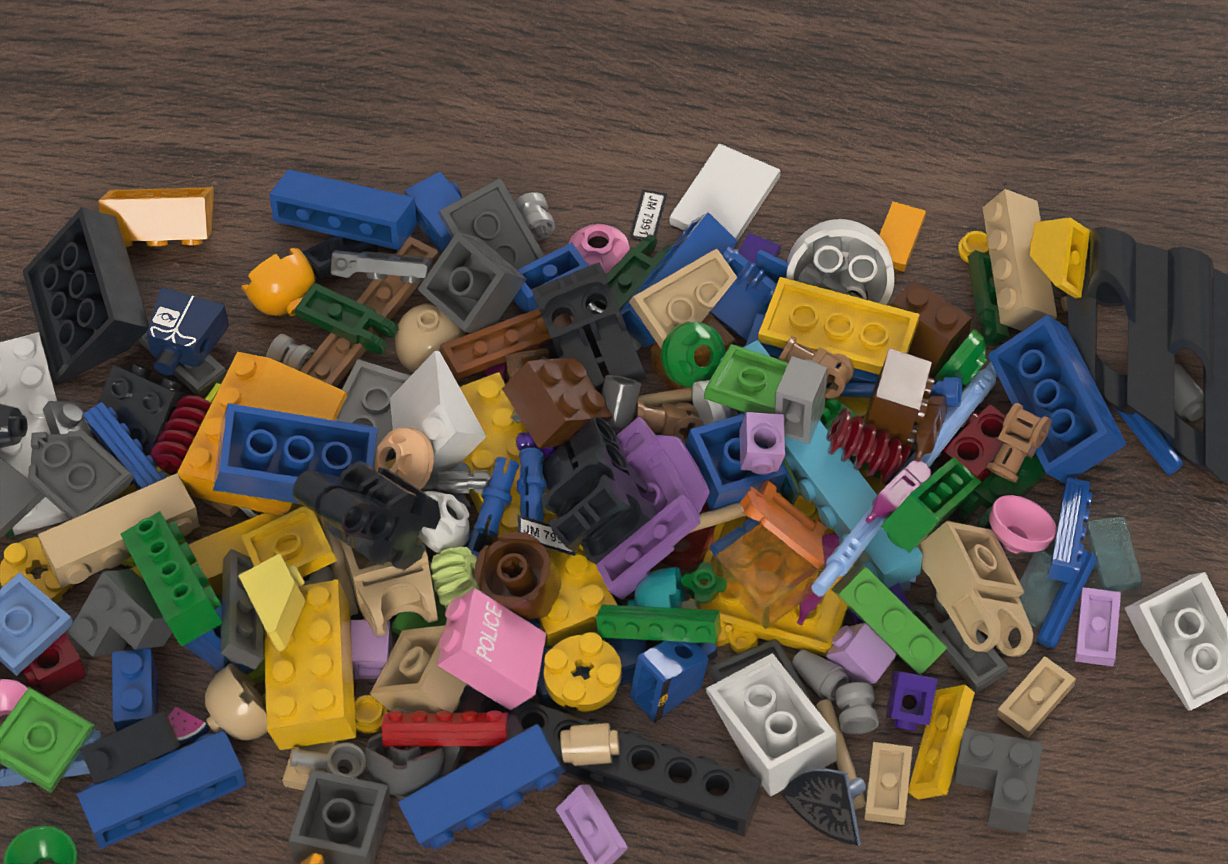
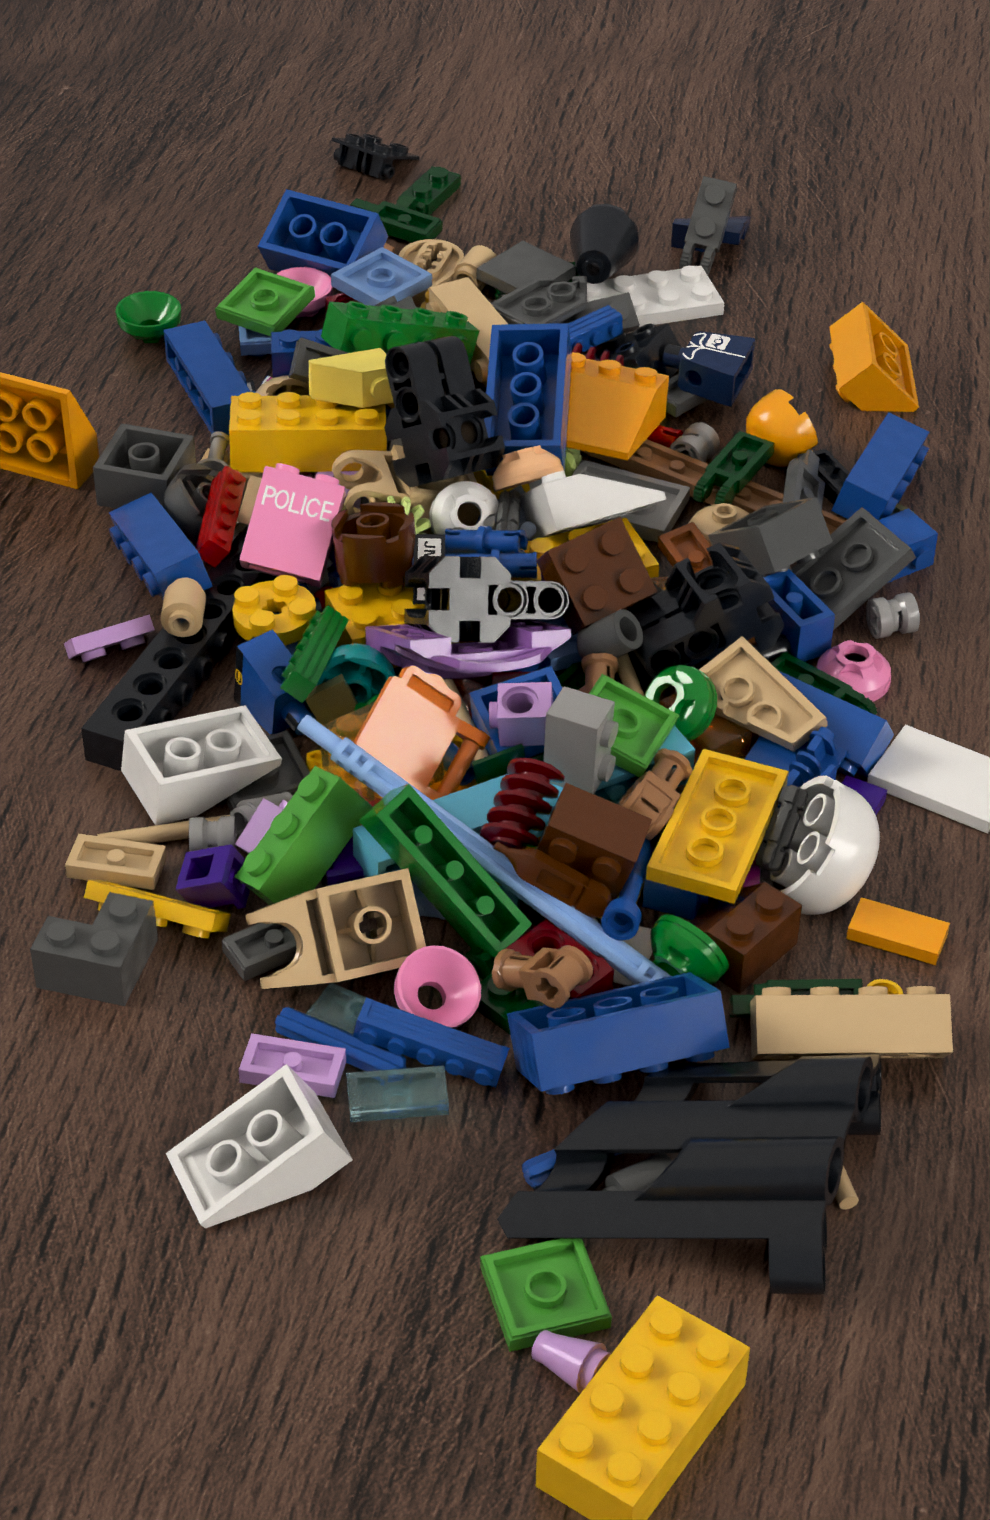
camera: 90 degrees right, 15 degrees down
(85, 295) = (764, 308): black slope -> none
(129, 747) = (242, 340): black slope -> none
(648, 214) = (920, 719): sticker -> none
(826, 802) = (94, 794): shield -> none
(898, 489) = (466, 831): piece -> none
(1036, 697) = (203, 998): tan plate -> none
(1061, 252) = (831, 1032): yellow slope -> none

